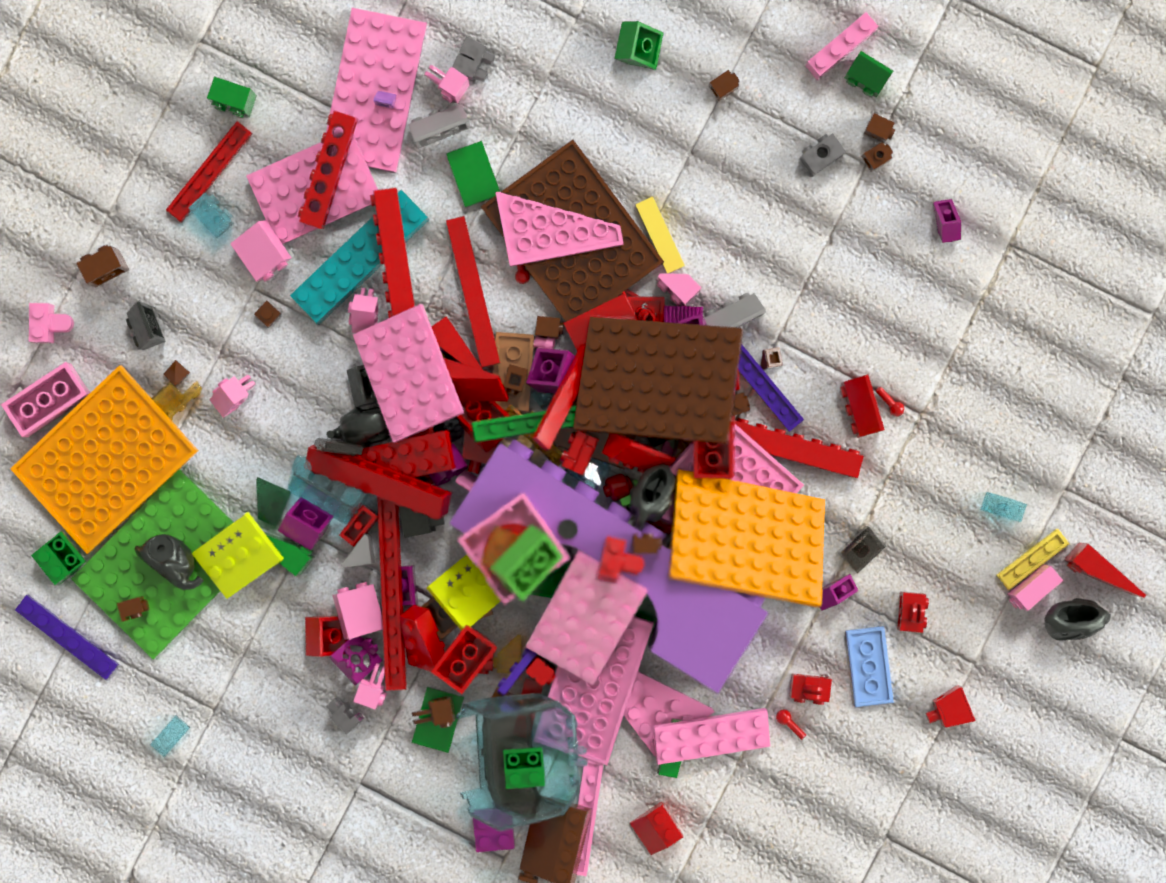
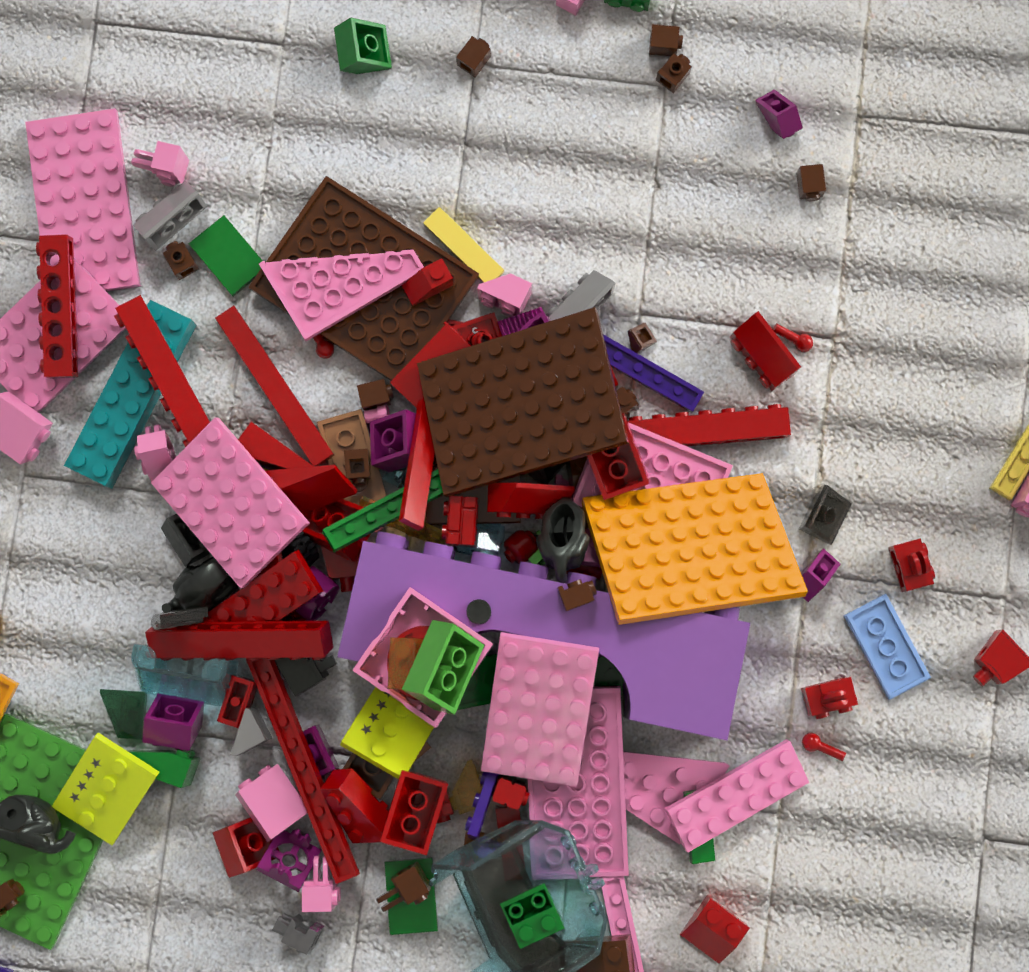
camera: 15 degrees left, 5 degrees down
(231, 394) = (35, 604): bright pink brick -> none
(267, 313) = (48, 497): reddish brown plate -> none
(385, 99) = (97, 208): medium lavender slope -> none
(438, 170) = (184, 266): none -> reddish brown brick
(466, 480) = (340, 602): bright pink slope -> none
(470, 59) = (179, 128): flat silver hips -> none
(615, 561) = (549, 627): red brick -> none
(621, 255) = (428, 282): none -> red slope
(833, 152) = (607, 104): flat silver brick -> none
(951, 285) = (811, 182): none -> reddish brown brick
(1003, 507) = (968, 407): clear light blue slope -> none

